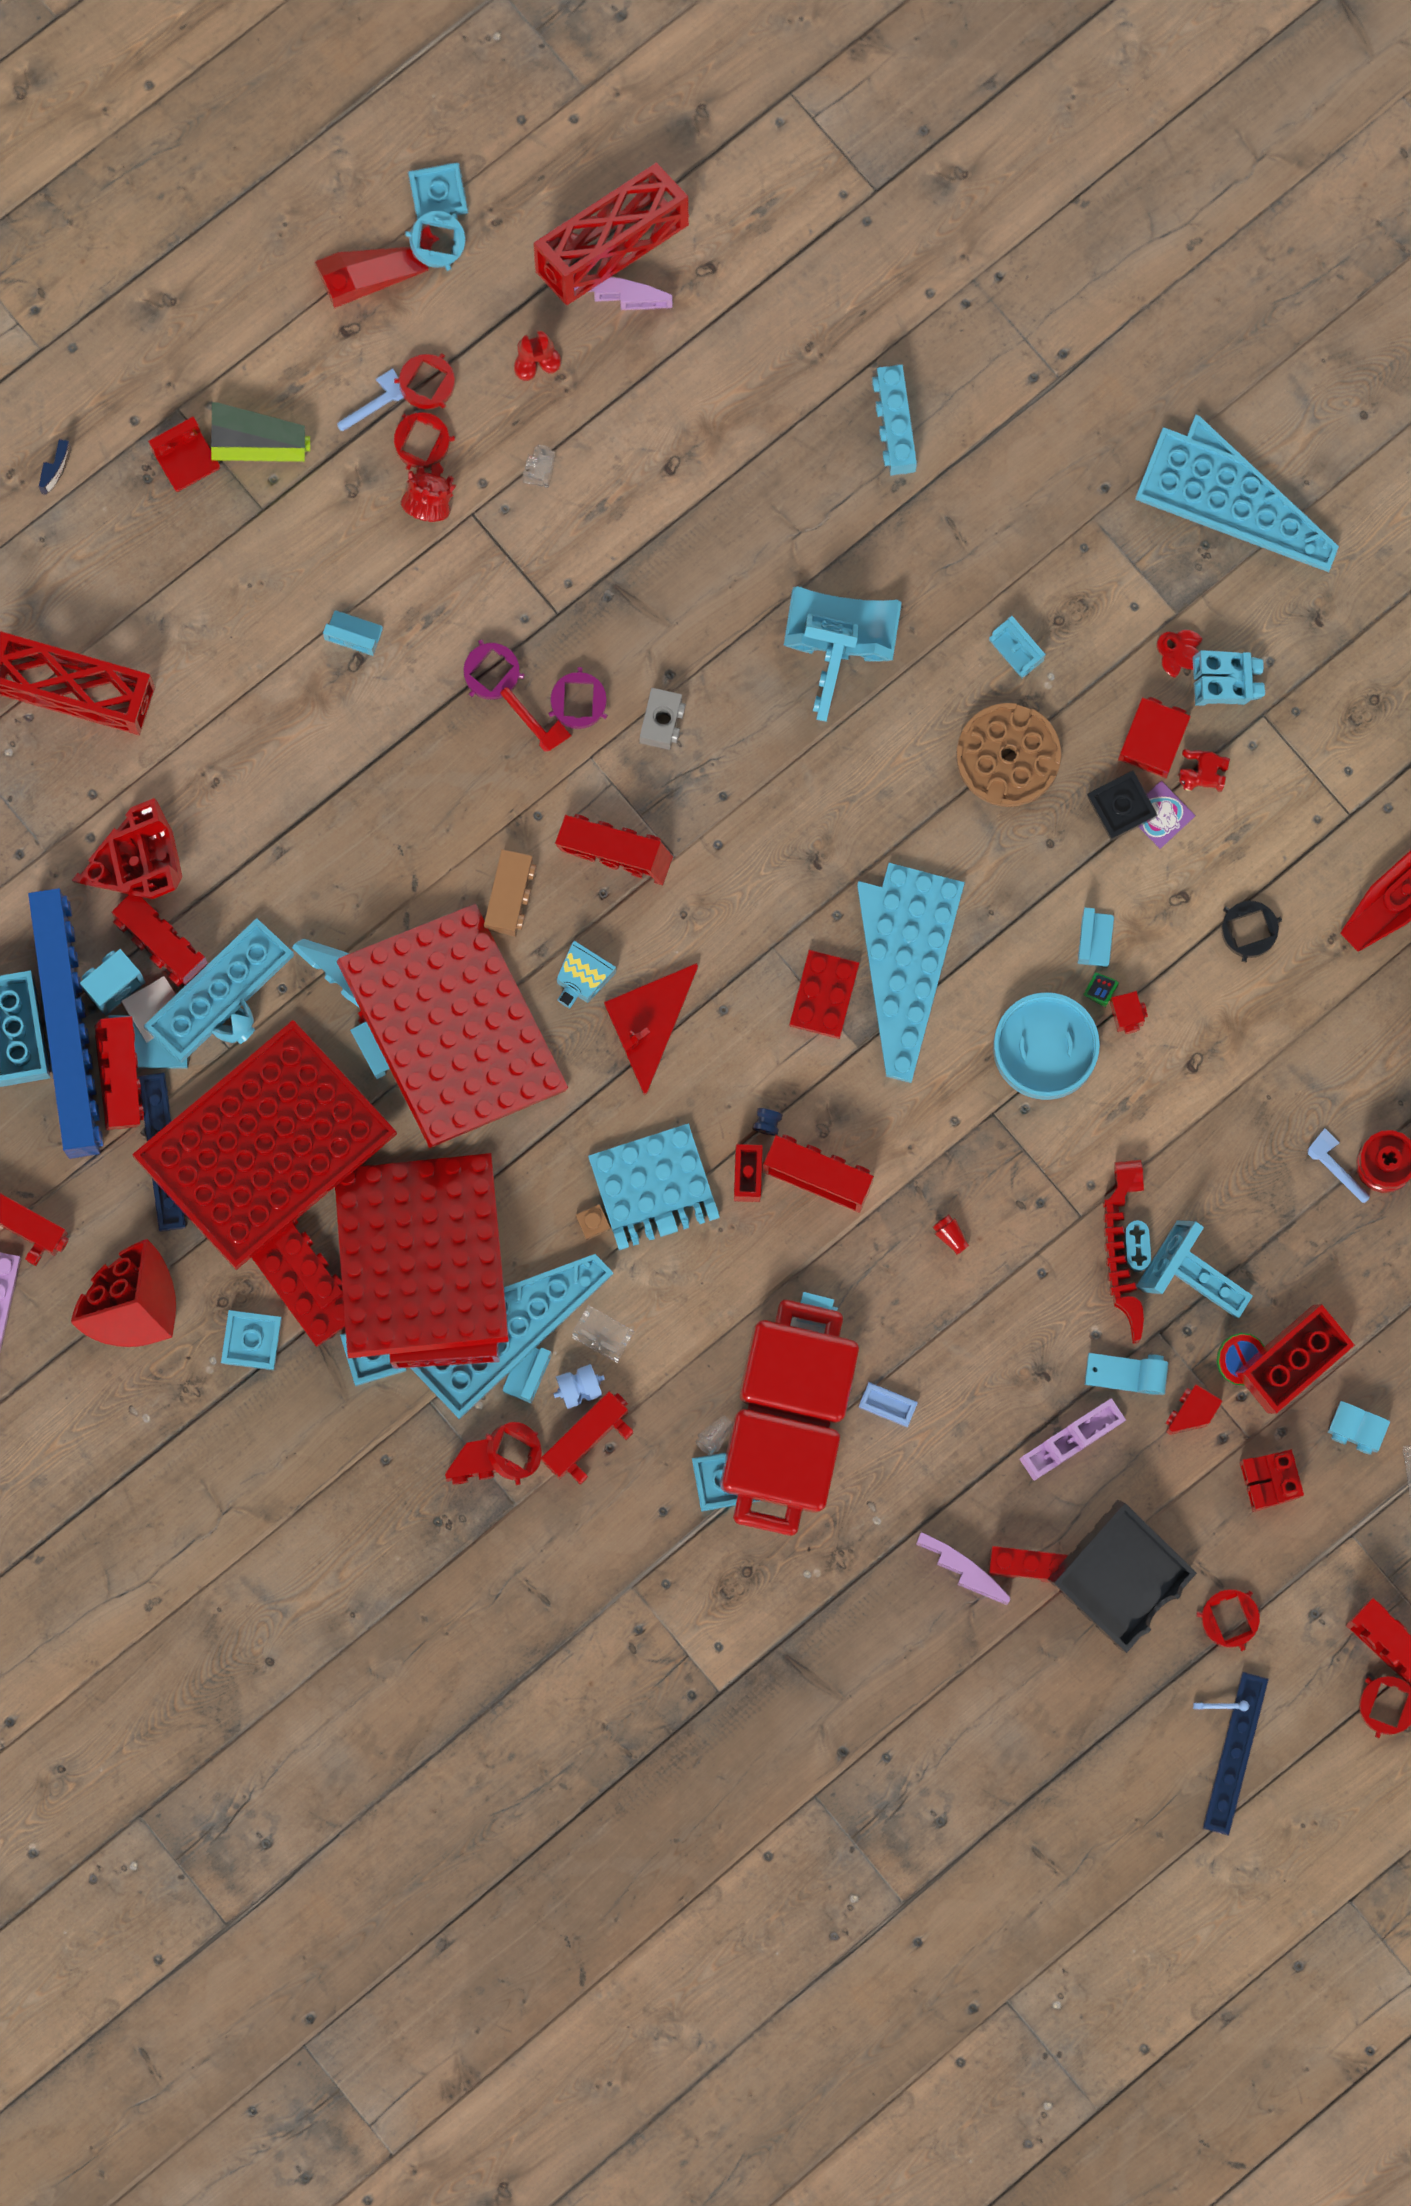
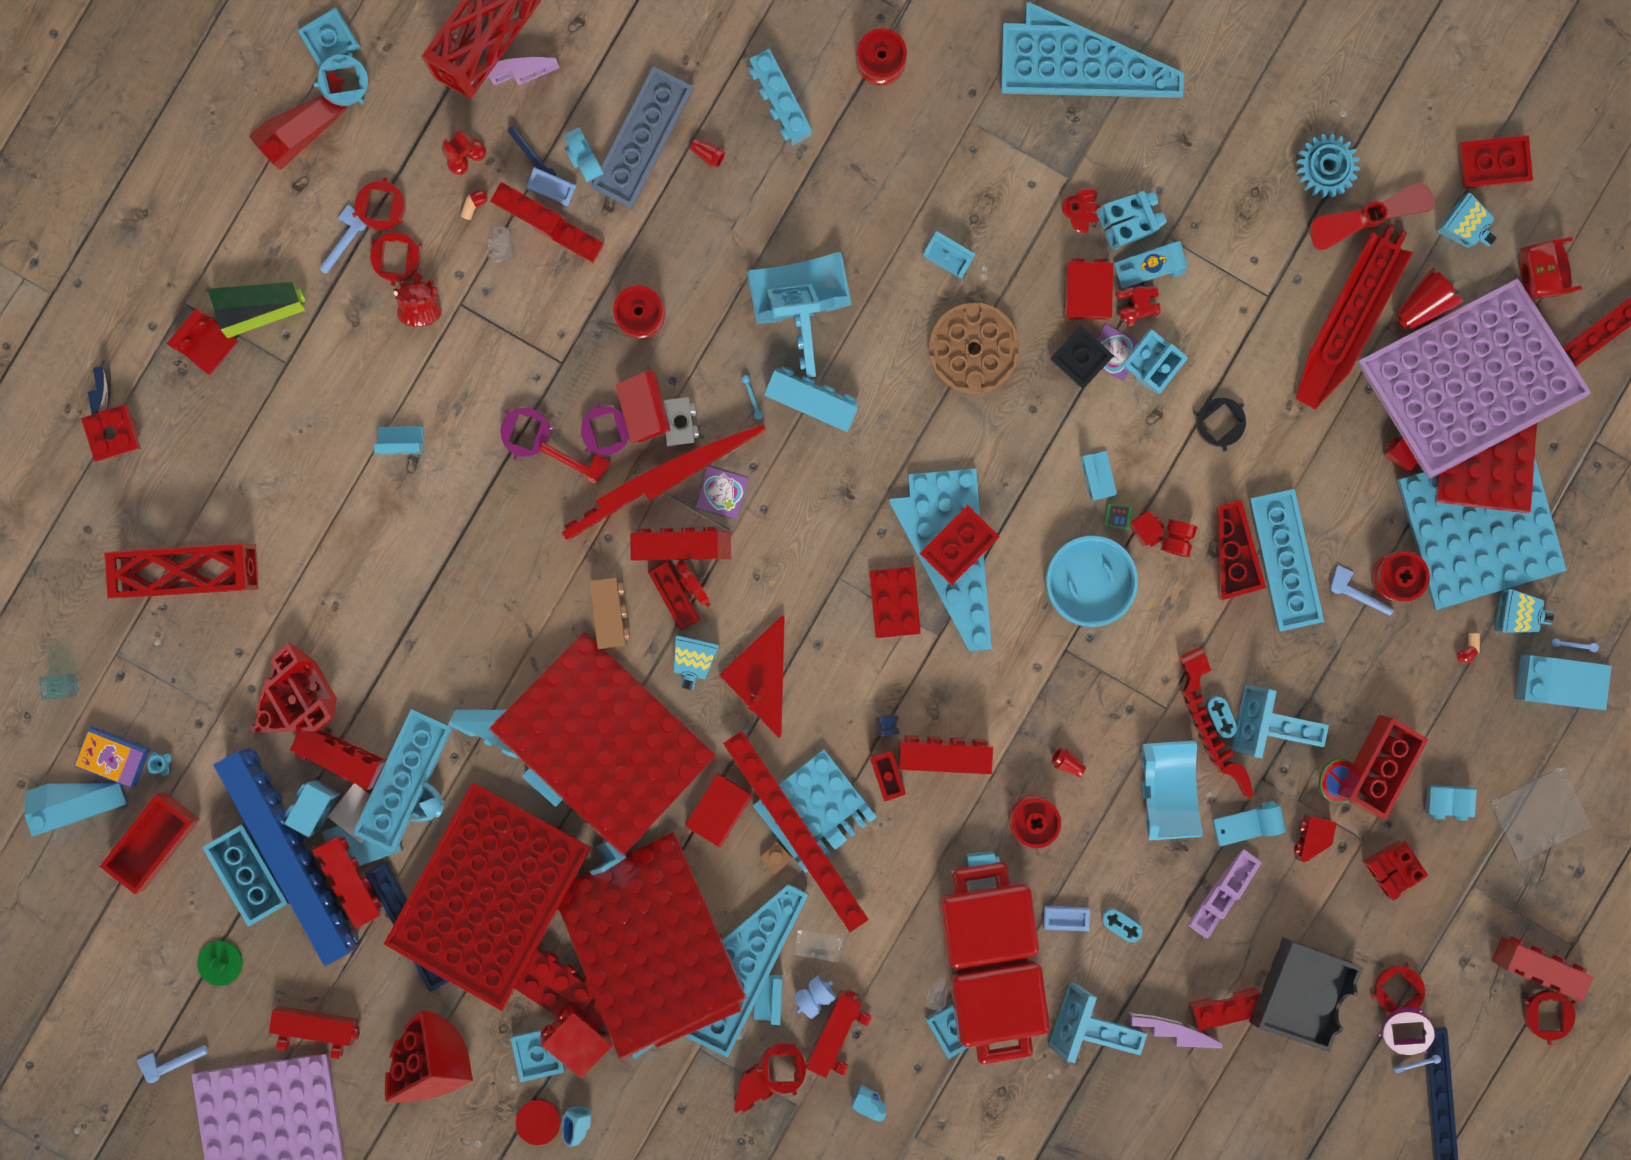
camera: 25 degrees left, 10 degrees up
(50, 513) = (111, 433): none -> red piece
(222, 1416) = (538, 1122): none -> red tile
(263, 1433) = (575, 1125): none -> medium azure rock
(299, 1336) = (574, 1041): none -> red panel
(412, 1147) = (609, 855): none -> medium azure panel
(527, 411) = (472, 202): none -> arm
(549, 1147) = (718, 810): none -> red piece
(586, 901) = (673, 595): none -> red tile
(595, 1526) = (869, 1104): none -> medium azure rock
(598, 461) = (547, 222): none -> red bracket
(612, 891) = (692, 584): none -> red piece
(616, 413) = (529, 152): none -> dark blue piece
(616, 426) = (550, 186): none -> light blue tile
(619, 771) = (660, 479): none -> red slope
(625, 1198) = (795, 831): none -> red plate
(628, 688) = (643, 407): none -> red piece
(647, 586) = (629, 303): none -> red wheel
(662, 403) = (582, 155): none -> medium azure piece
(679, 811) = (722, 492): none -> sticker
(733, 410) = (642, 137): none -> sand blue plate
(749, 742) = (758, 414): none -> medium azure hinge
(798, 450) = (709, 153): none -> red cone
(813, 745) = (812, 399): none -> medium azure brick
(858, 1517) = (1076, 1025): none -> medium azure piece
(890, 1266) = (1042, 832): none -> red wheel
(916, 954) = (959, 545): none -> red plate
(941, 1437) = (1118, 929): none -> medium azure beam
(1023, 401) = (894, 53): none -> red wheel
(1054, 1301) = (1171, 790): none -> medium azure panel
(1157, 1036) = (1179, 538): none -> red wheel
(1198, 836) = (1154, 361): none -> medium azure brick
(1214, 1080) = (1237, 555): none -> red wedge
(1221, 1683) = (1411, 1045): none -> piece
(1245, 734) = (1152, 264): none -> medium azure door
(1268, 1101) = (1286, 560): none -> medium azure plate

